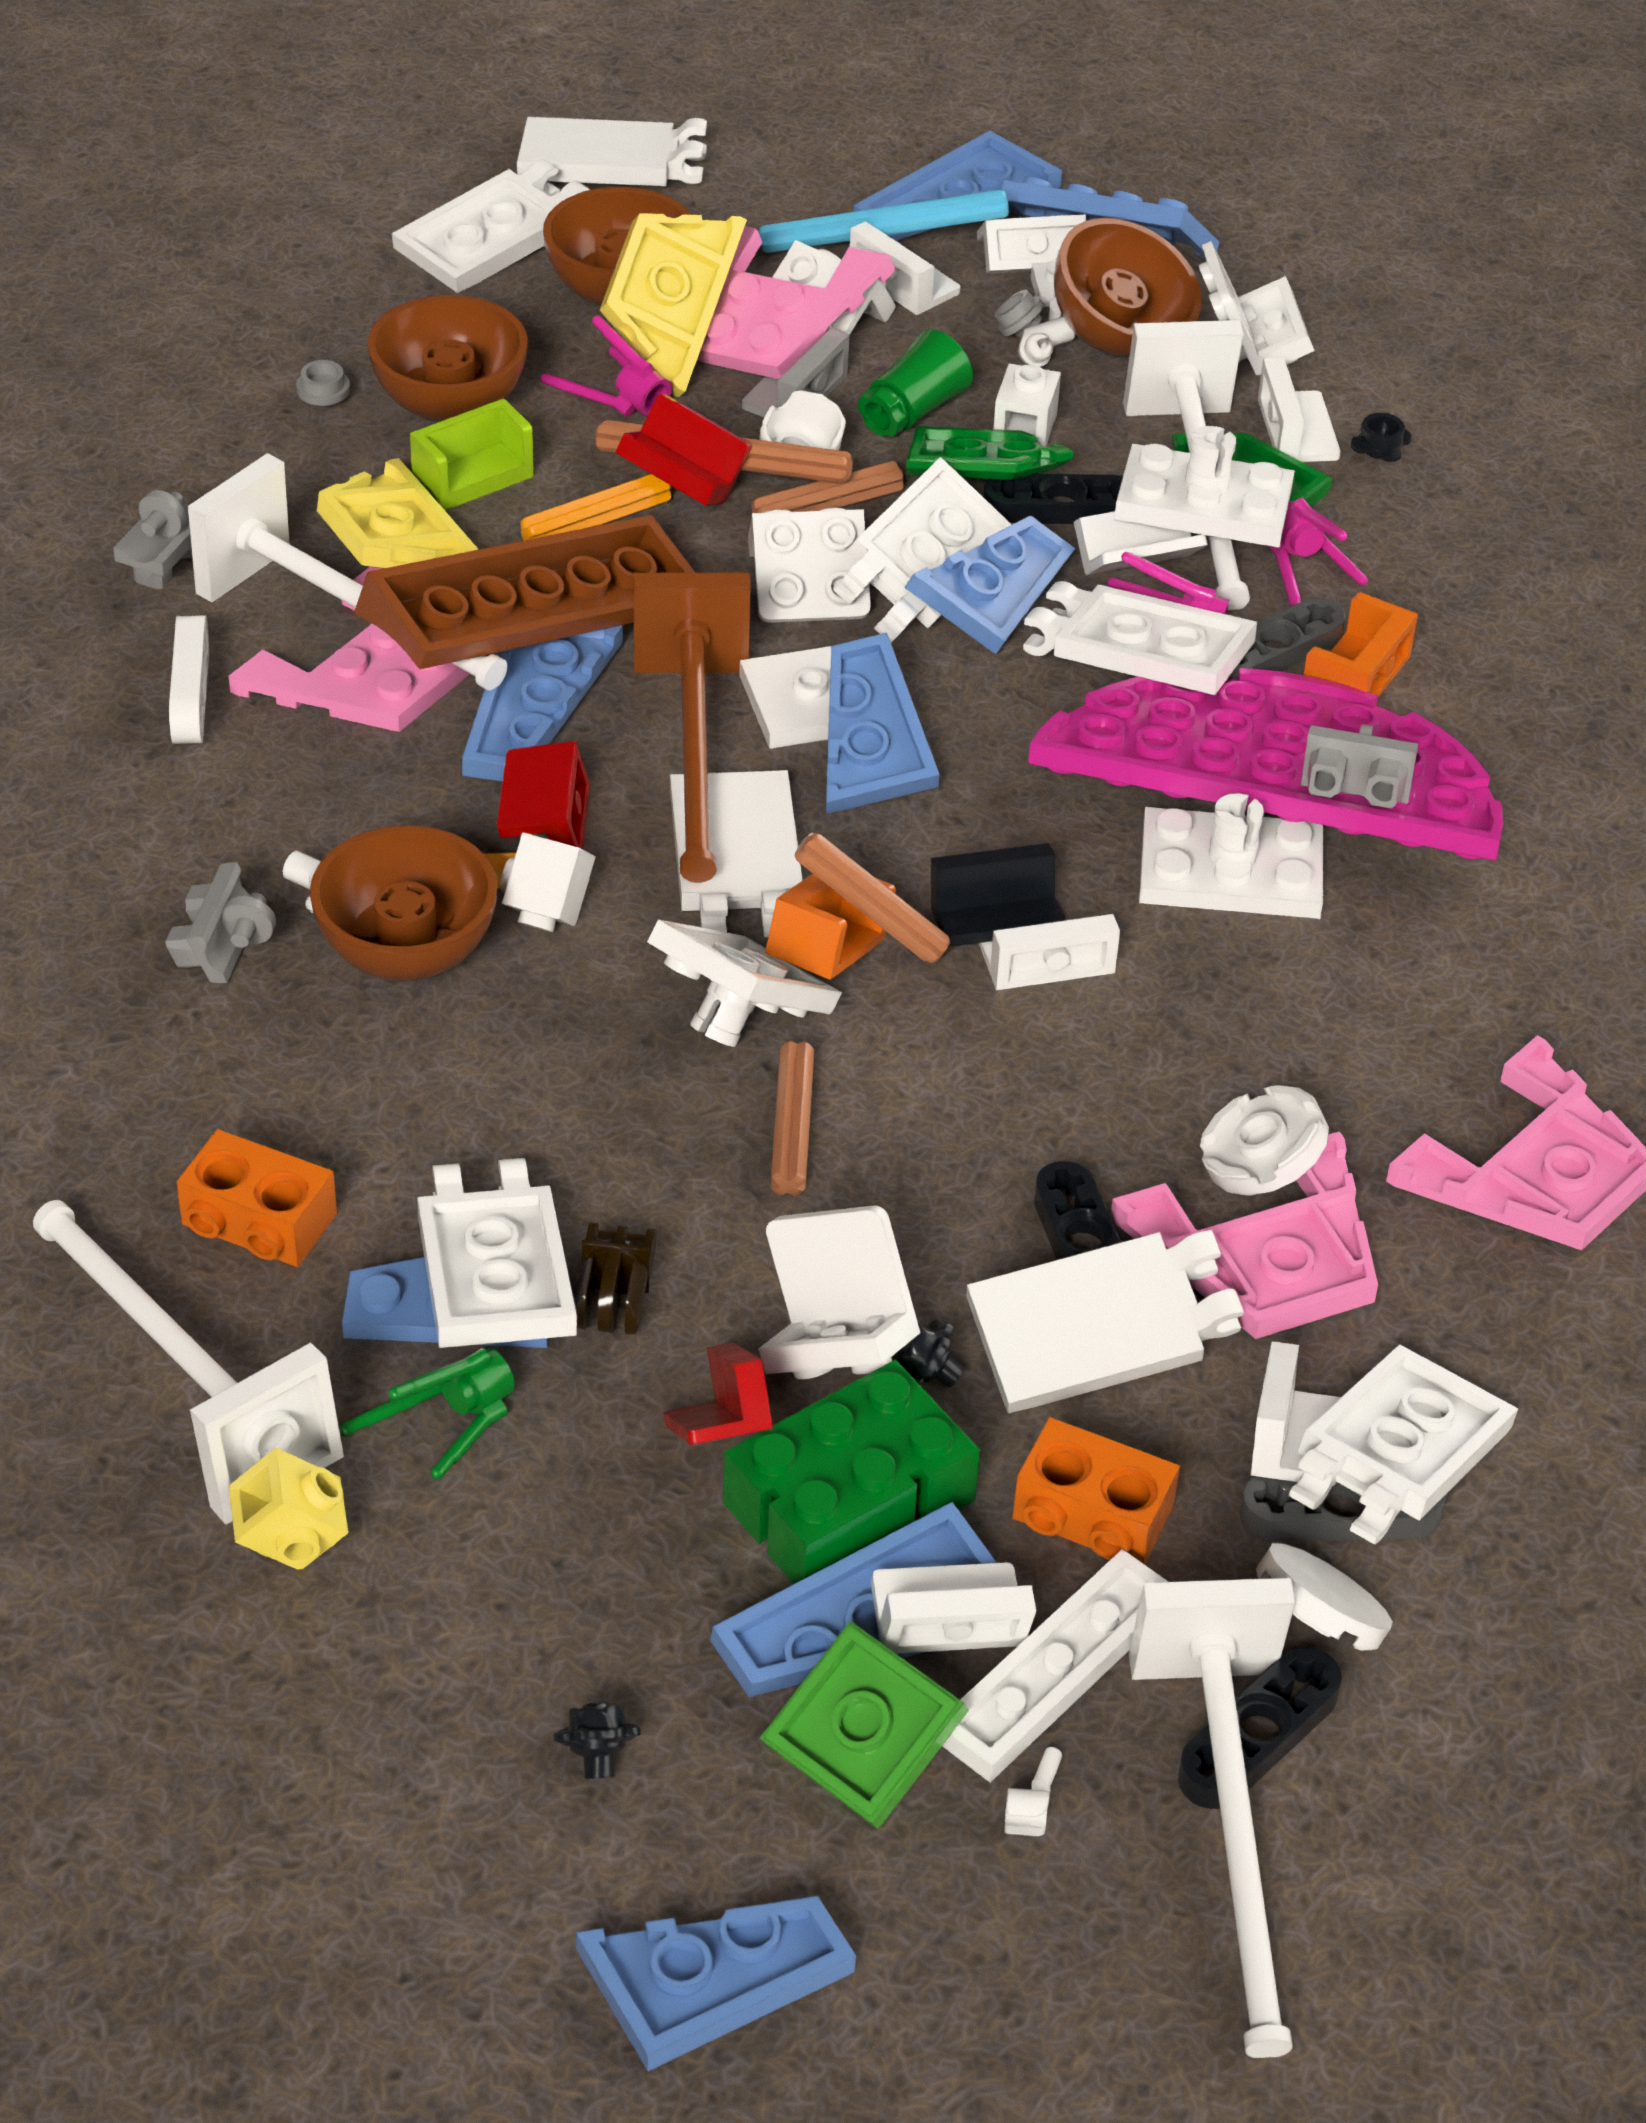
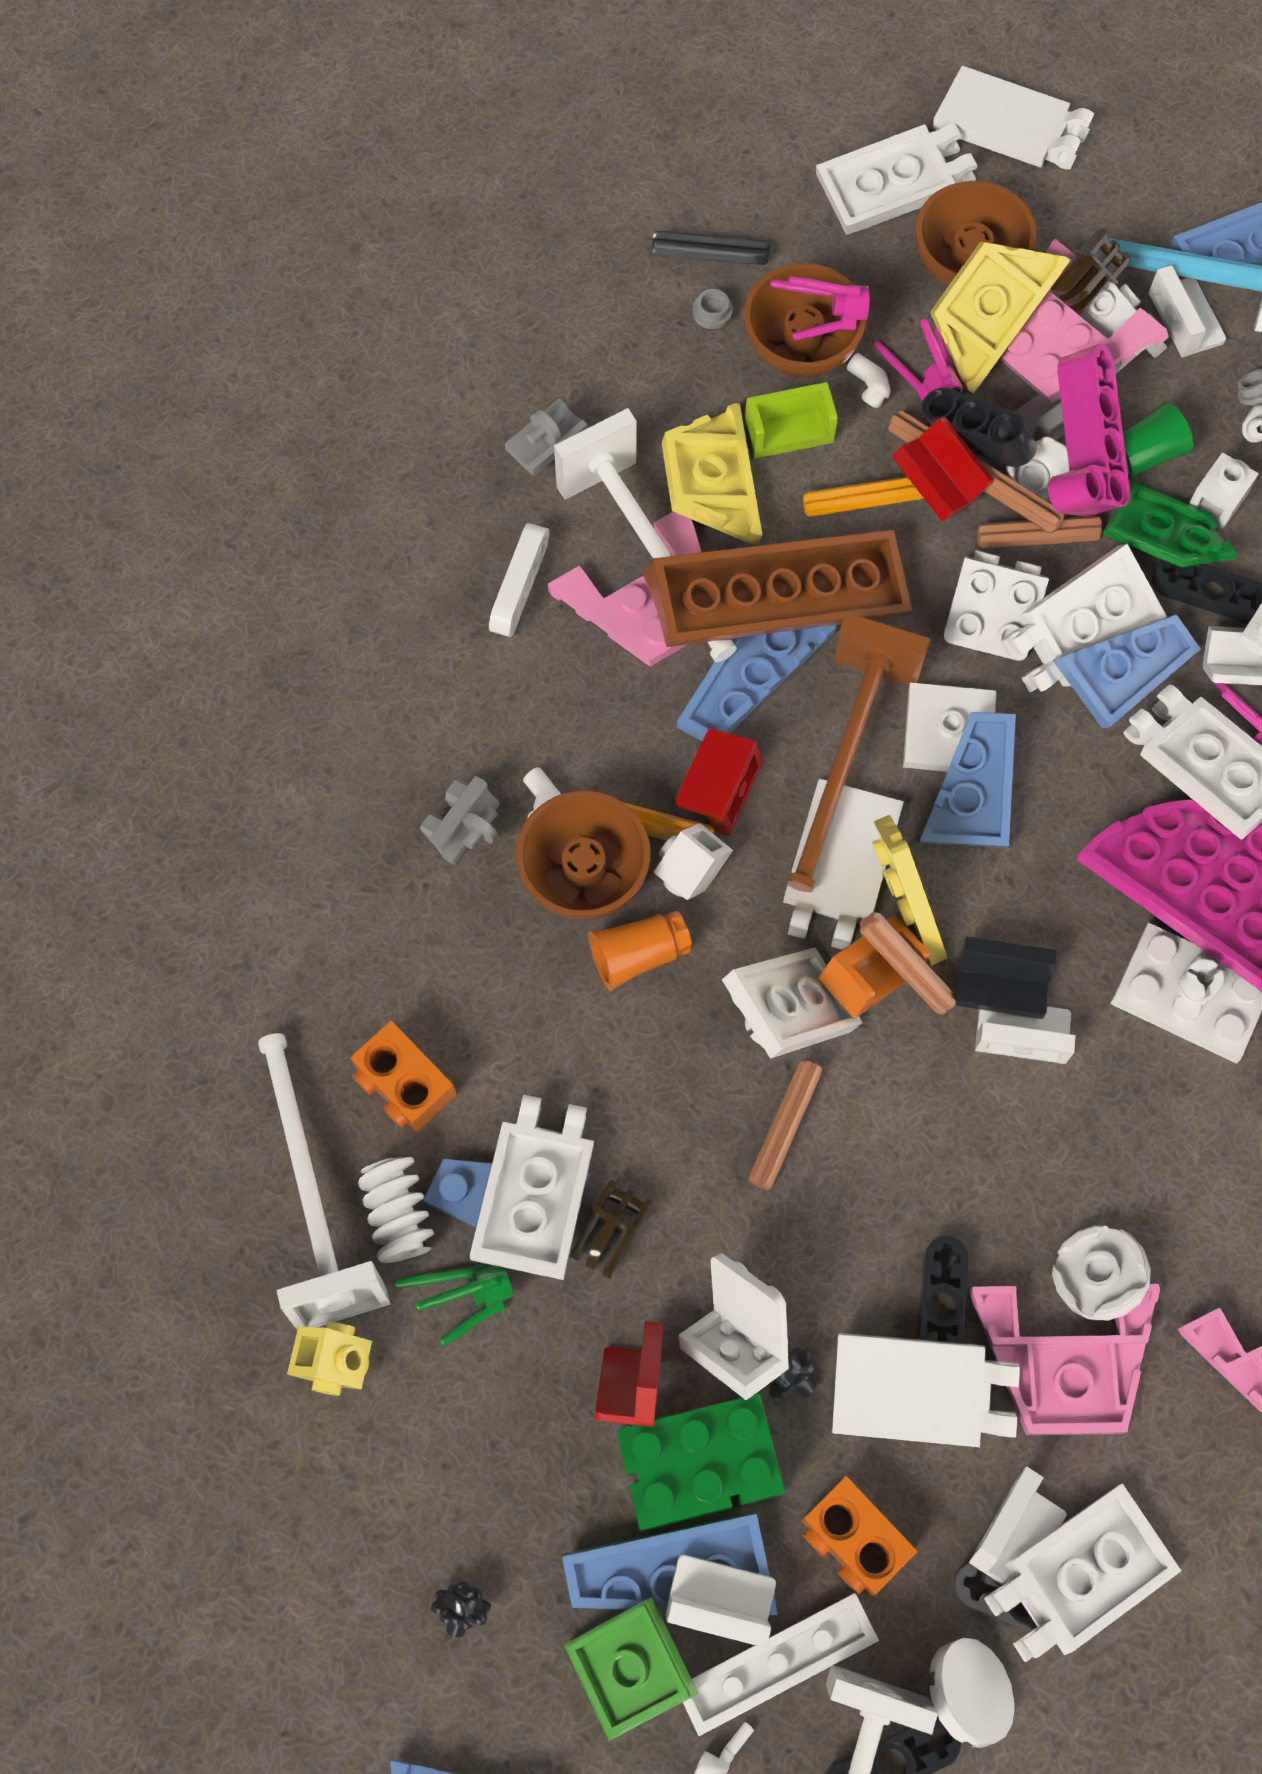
camera: 25 degrees right, 25 degrees up
(293, 332) = (710, 247): none -> black axle
(295, 1309) = (394, 1209): none -> white piece
(499, 310) = (847, 302): none -> dark pink plant
(513, 986) = (638, 947): none -> orange plant
(561, 407) = (873, 376): none -> white arm
(731, 394) = (983, 426): none -> black beam
(774, 232) = (1088, 274): none -> dark brown arm
(826, 800) = (905, 882): none -> light yellow wing
(867, 403) = (1092, 436): none -> dark pink beam

